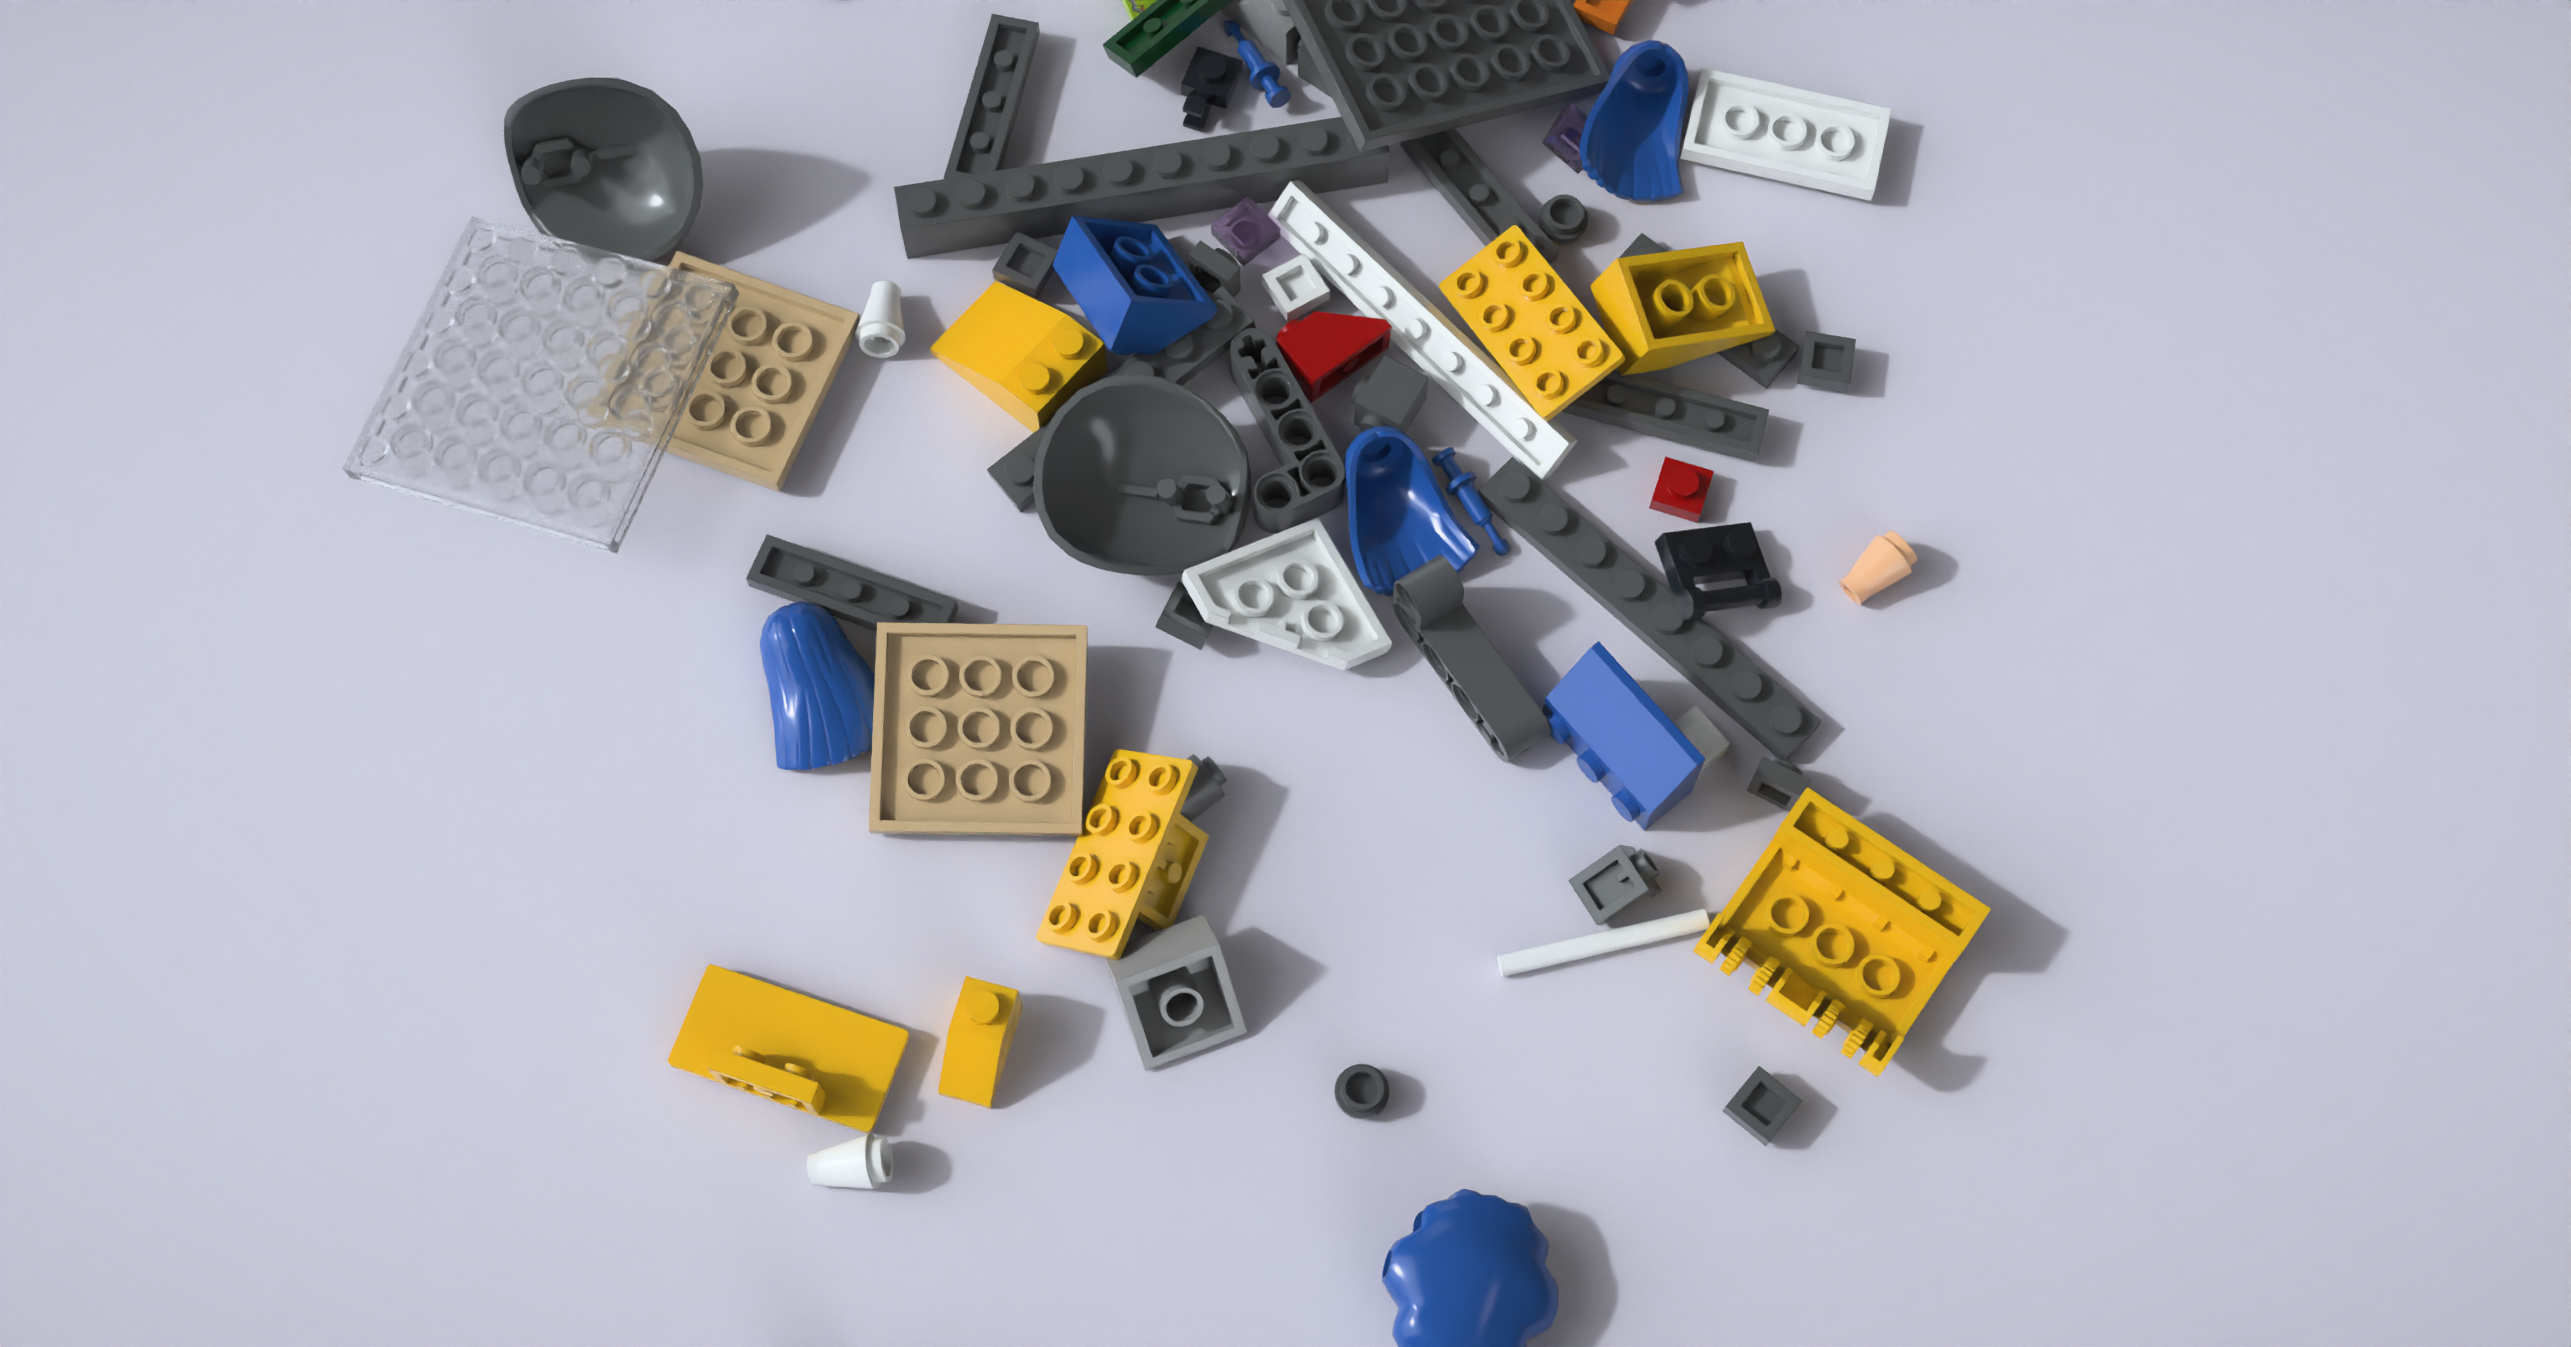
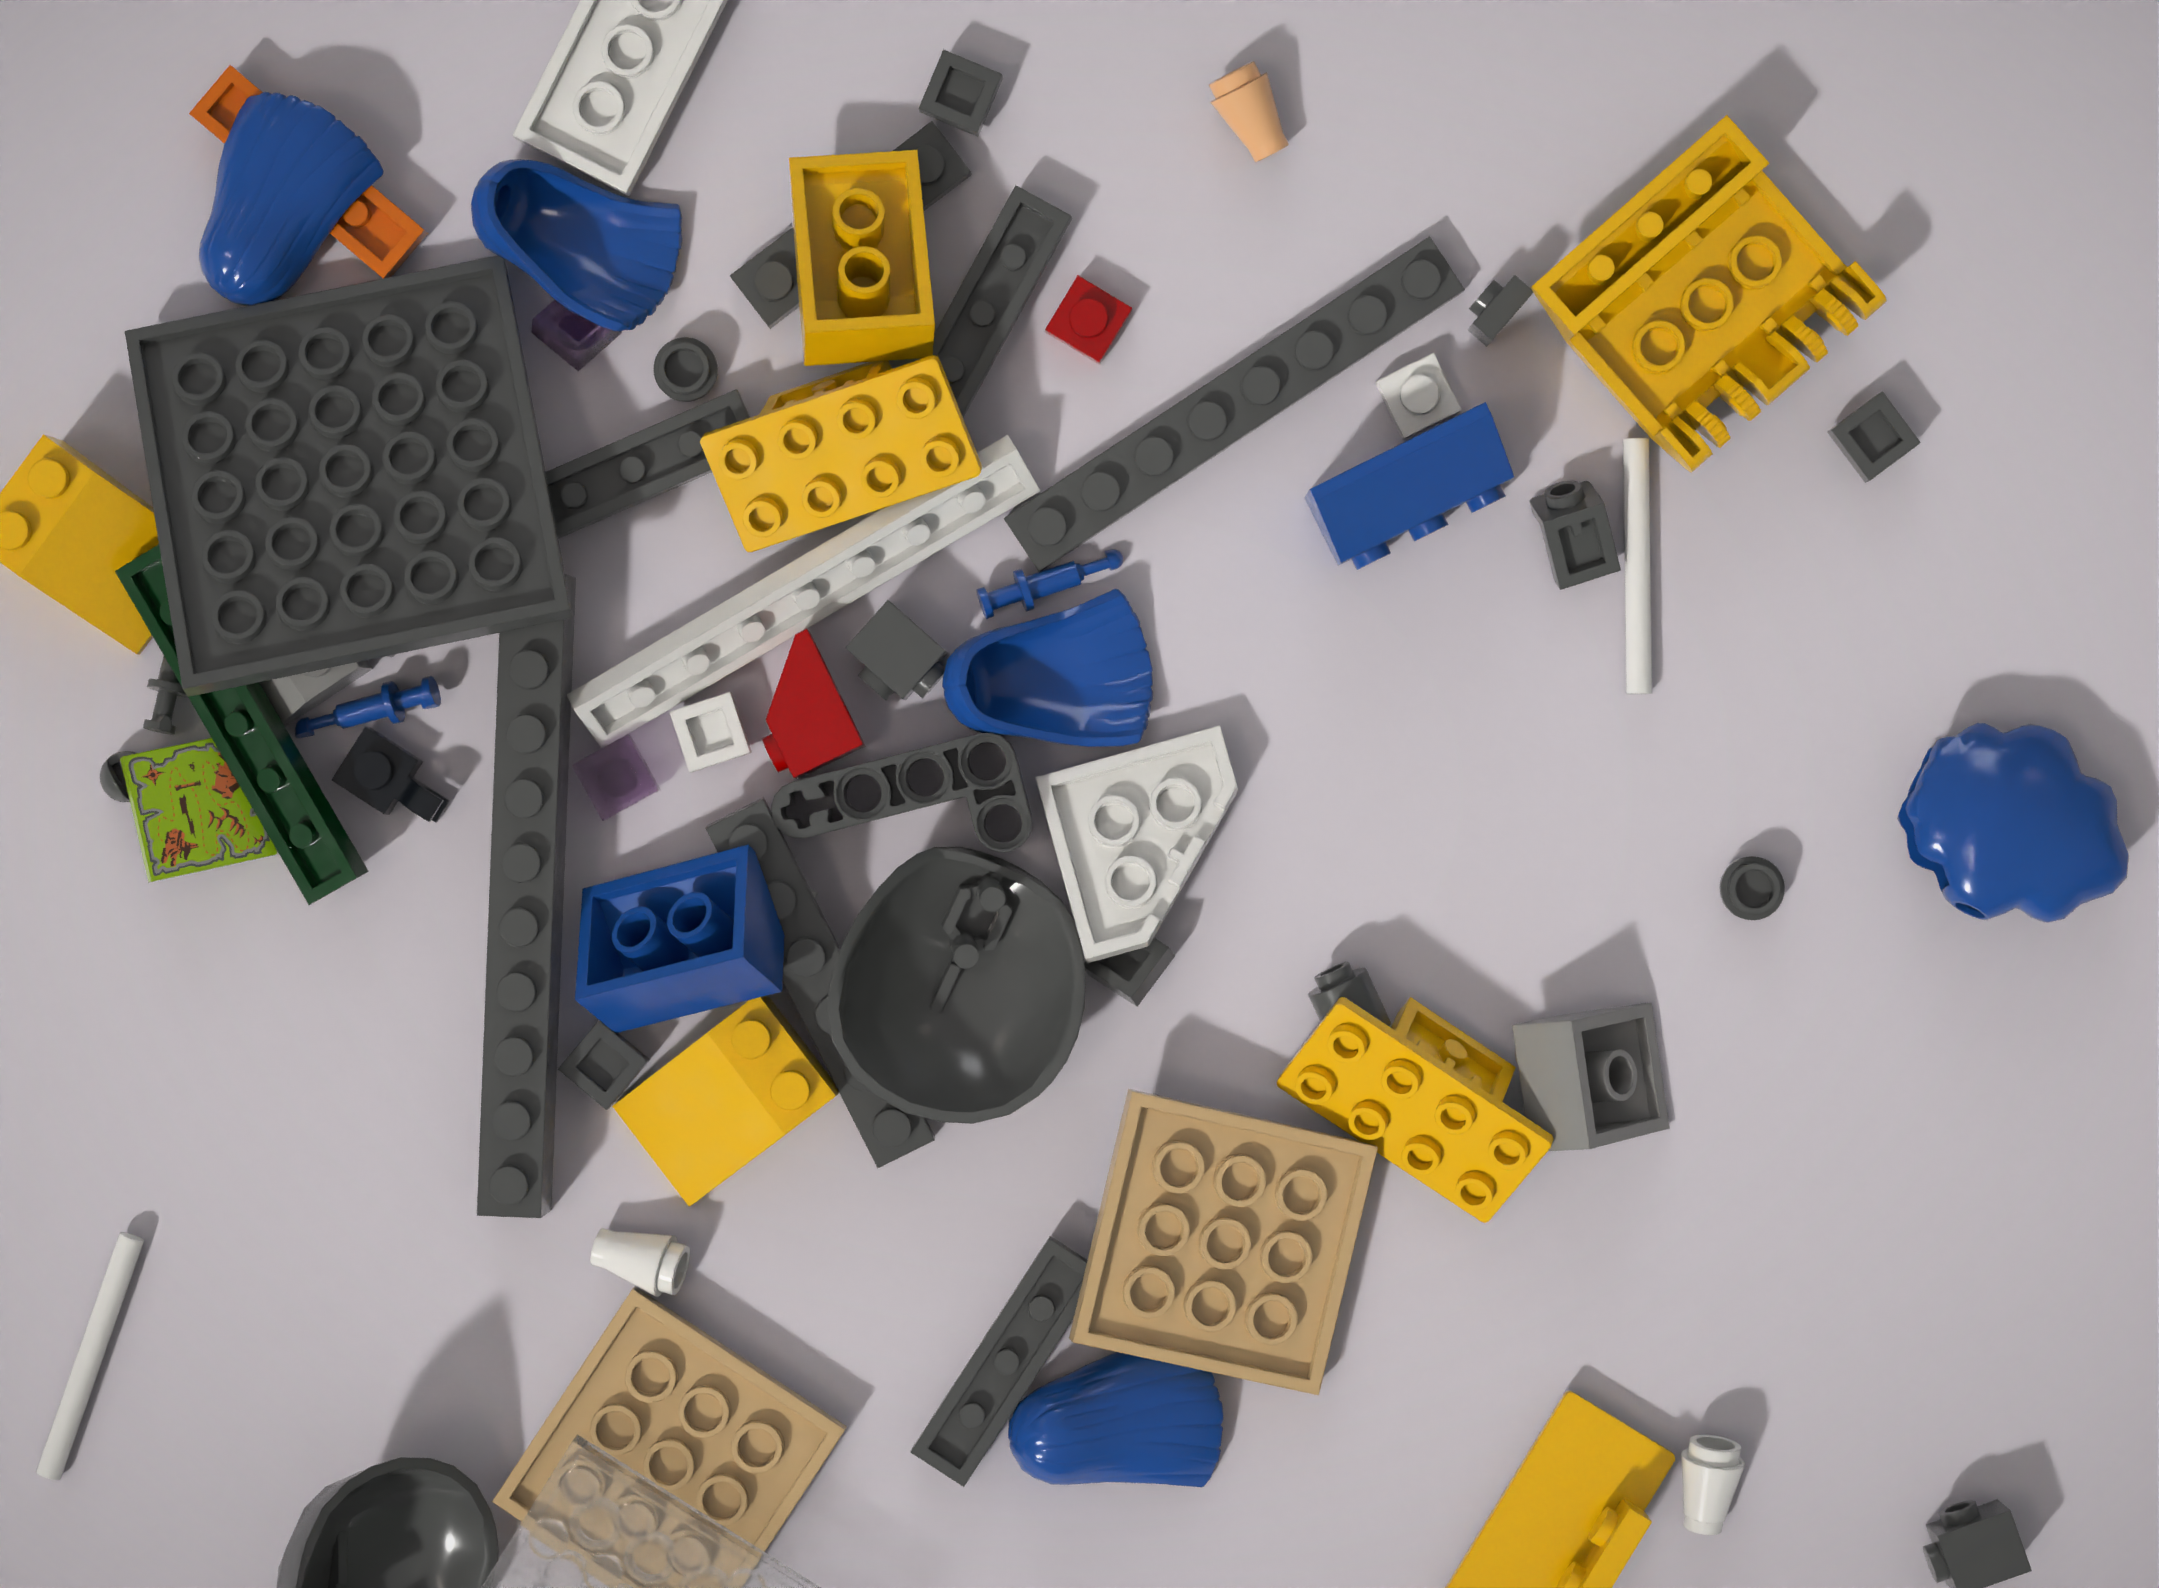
camera: 75 degrees left, 20 degrees up
(979, 1041) = (1599, 1312): yellow slope -> none
(993, 96) = (358, 1062): dark grey plate -> none
(1214, 268) = (666, 827): dark grey plate -> none
(1465, 659) = (1269, 637): dark grey beam -> none
(1716, 556) = (1193, 312): black plate -> none

